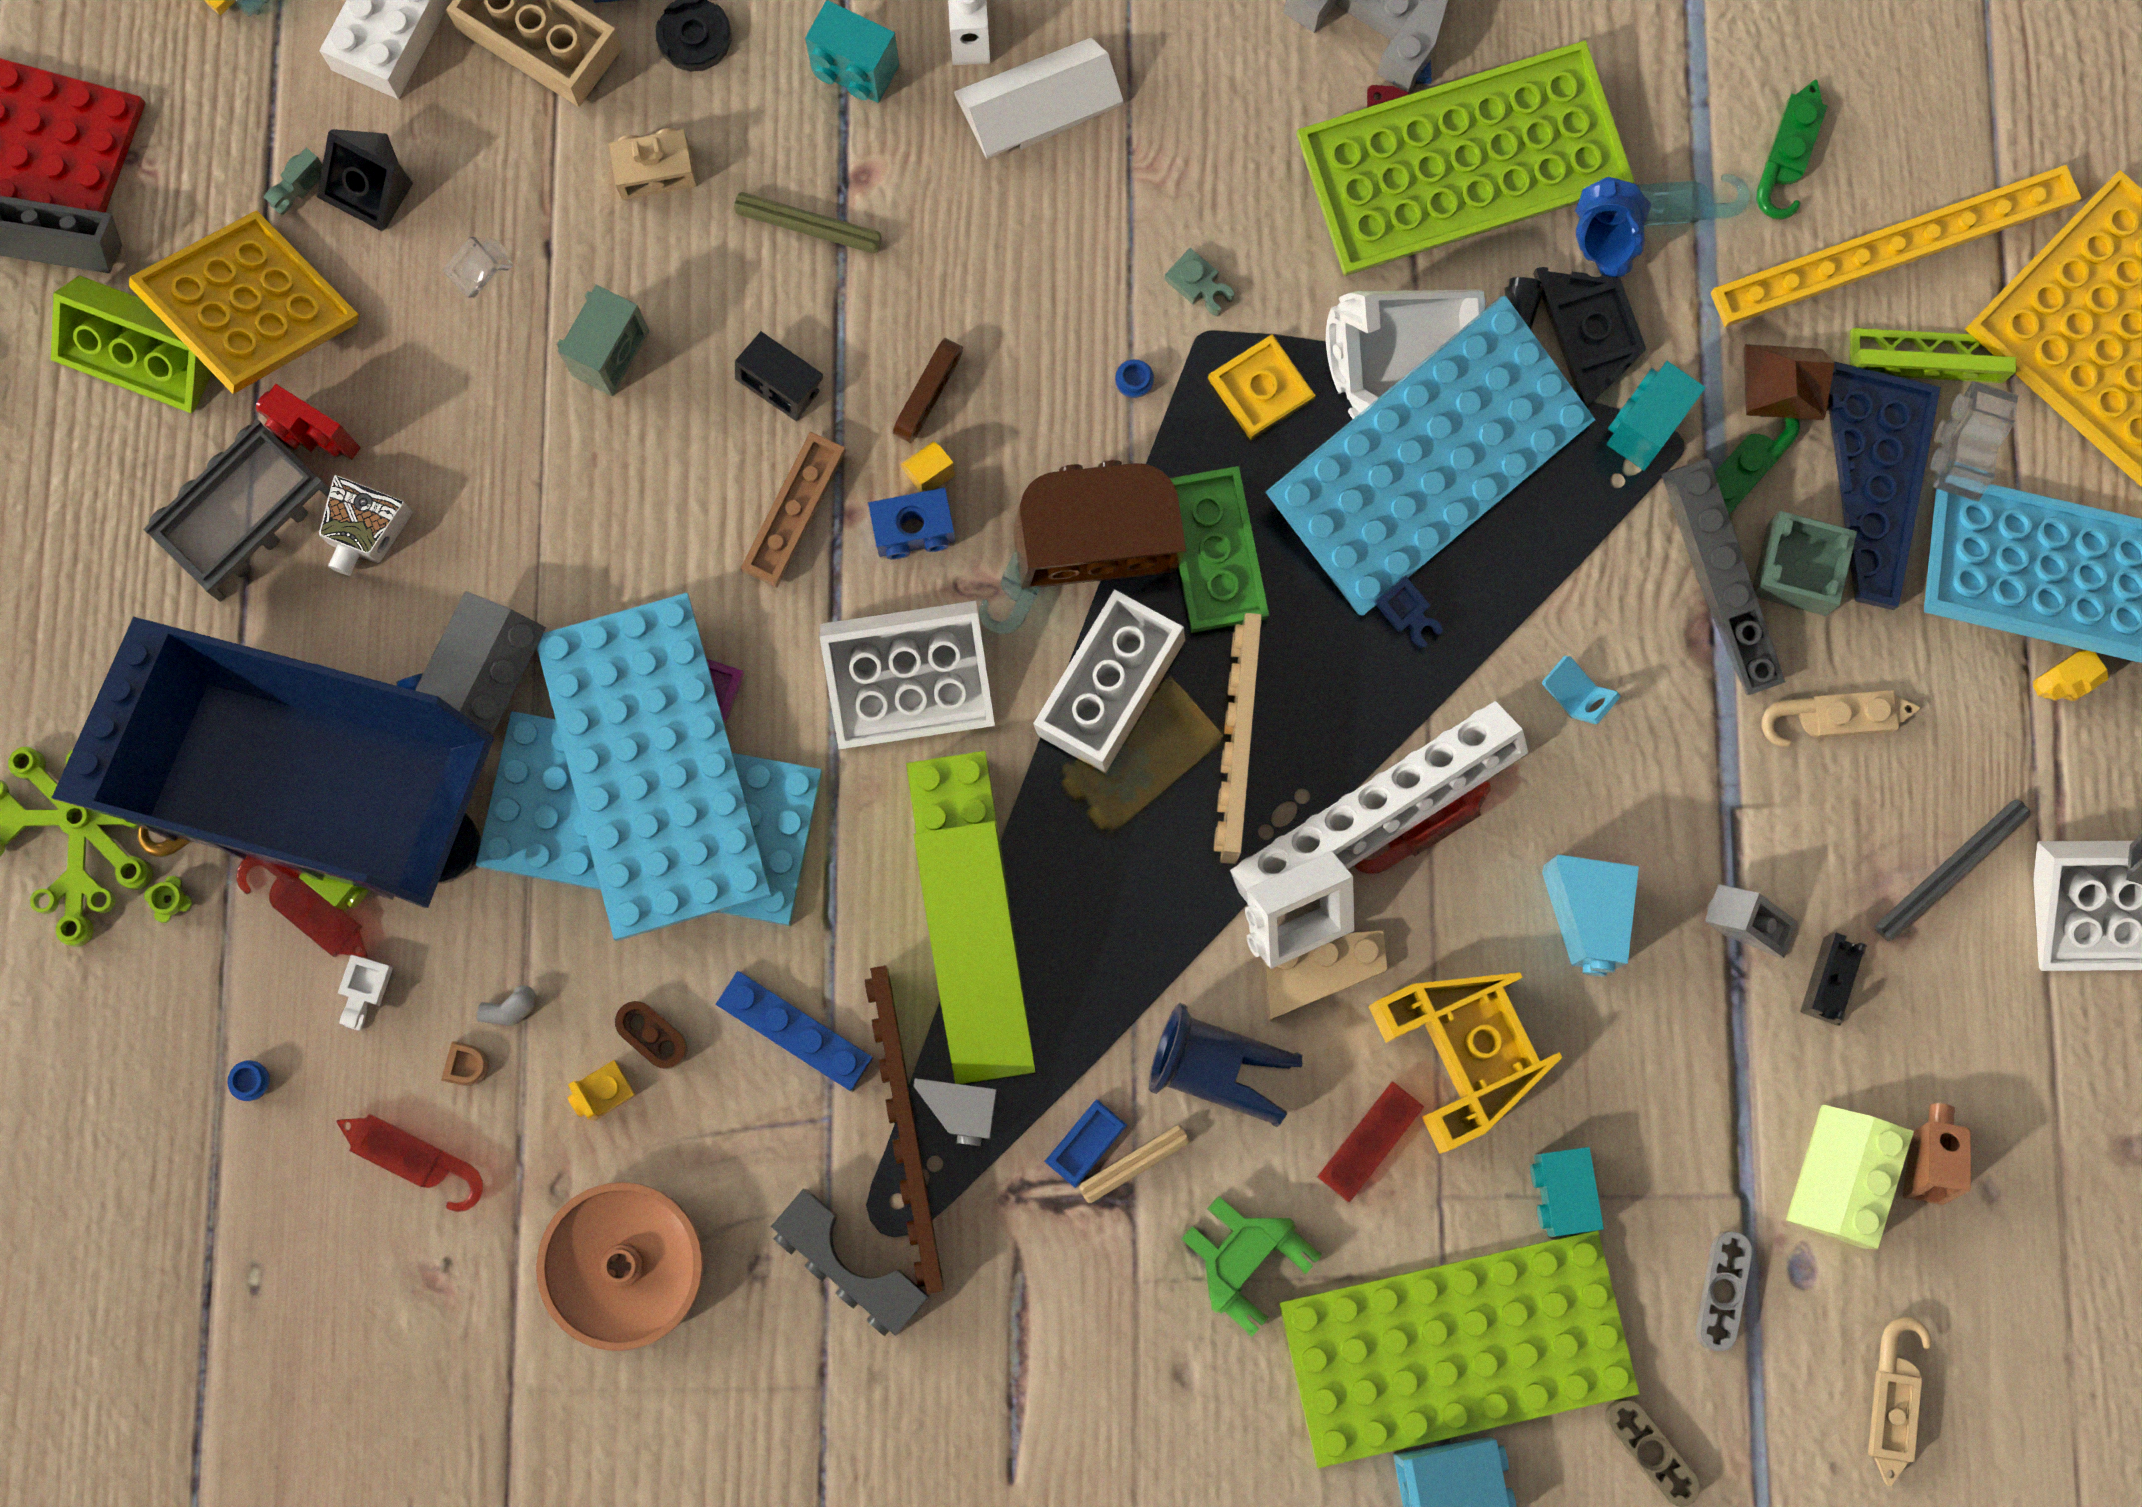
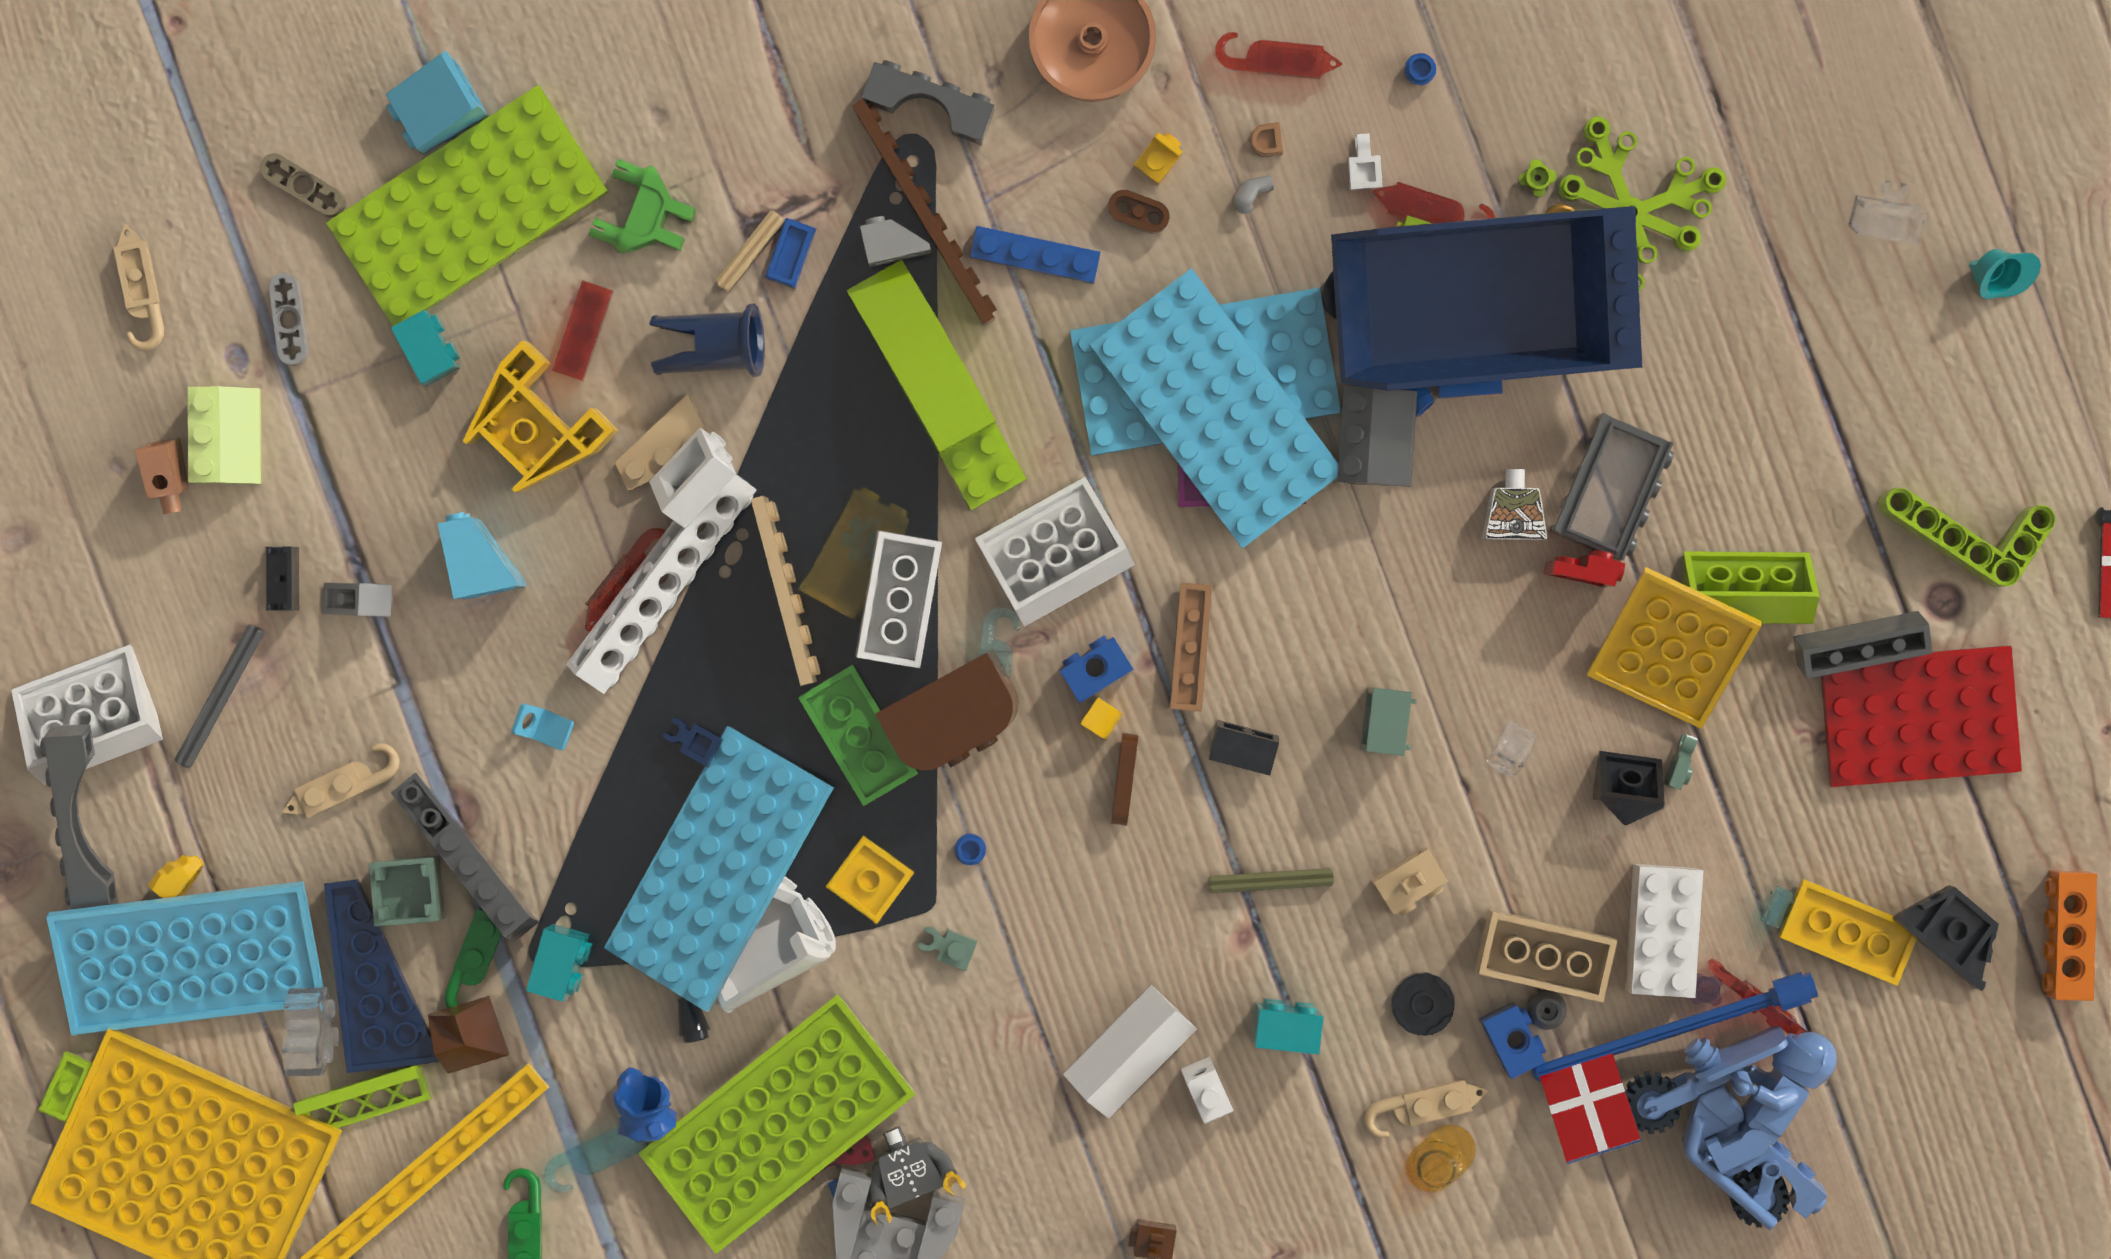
camera: 155 degrees right, 10 degrees up
(1335, 54) = (908, 1172): none -> dark grey torso
(1591, 327) = (631, 1022): black wing -> none

